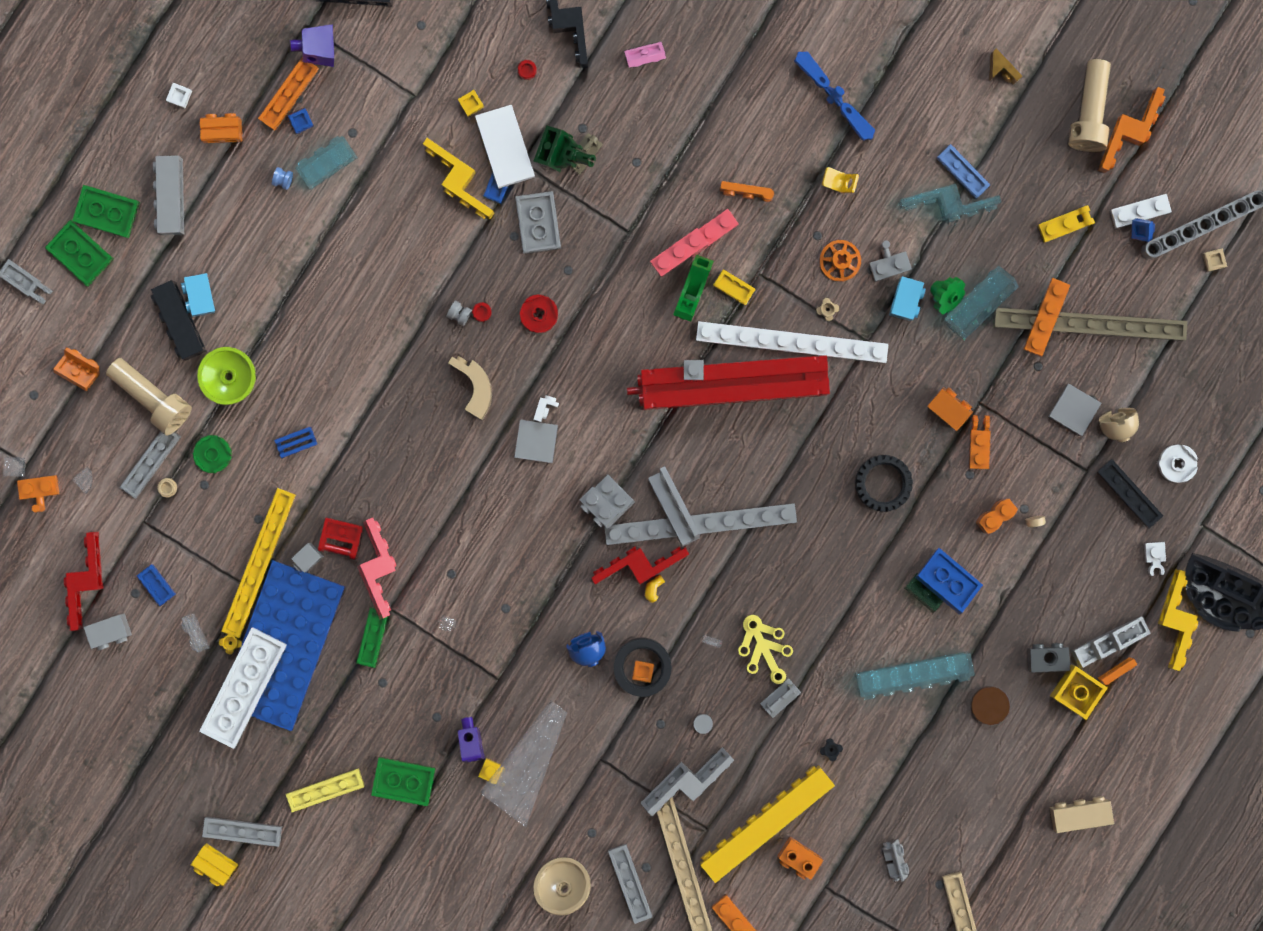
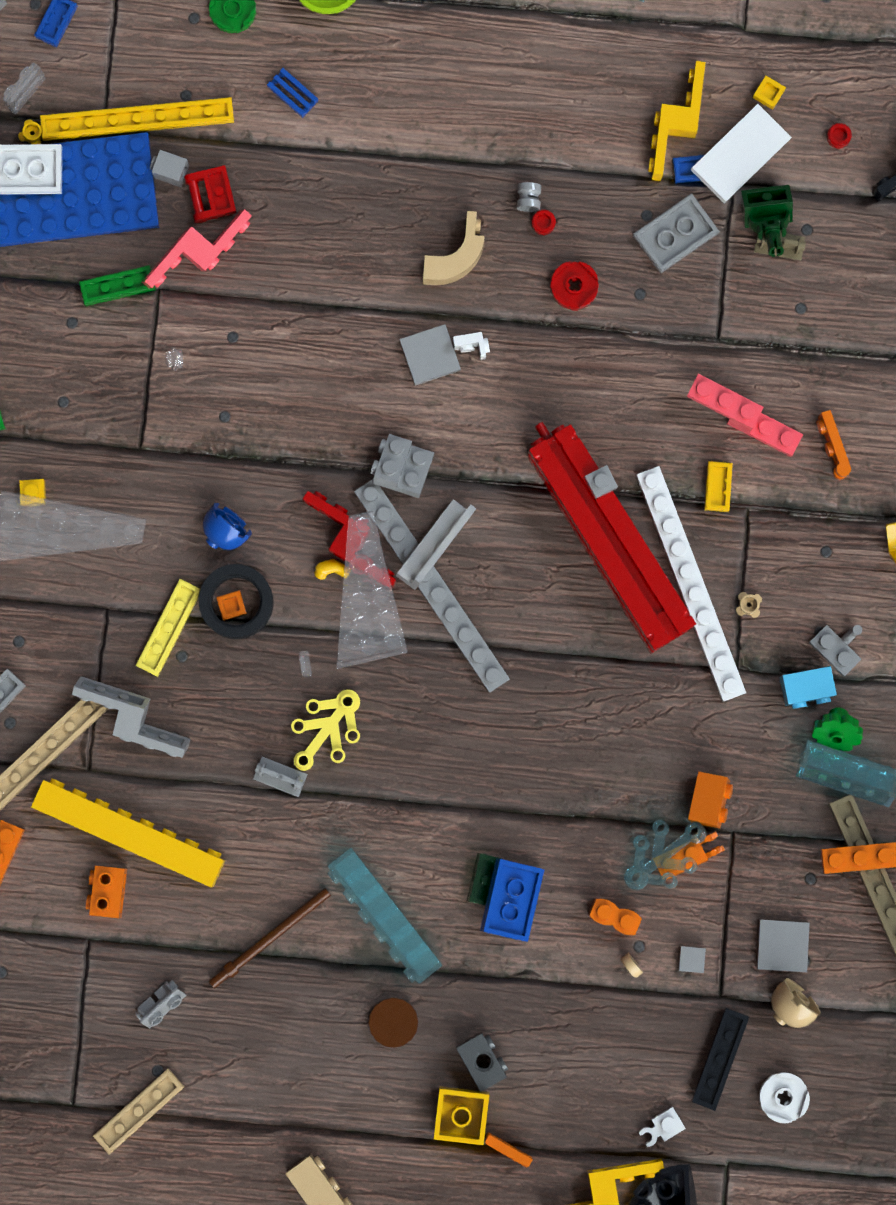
camera: 60 degrees right, 5 degrees down
(470, 750) = (45, 455): dark purple torso -> none
(636, 723) = (168, 627): none -> light yellow tile
(693, 288) = (693, 440): green arch -> none
(697, 577) = (368, 609): none -> clear wing
(703, 723) = (206, 703): light grey tile -> none
(826, 749) = (244, 869): black plate -> none
(840, 260) = (812, 591): orange wheel -> none
(896, 798) = (232, 968): none -> reddish brown bar
(906, 485) = (609, 751): black tyre -> none
(972, 462) = (661, 857): none -> clear light blue plant
(1052, 477) = (692, 959): none -> light grey tile
(1110, 642) = (537, 1125): light grey slope -> none

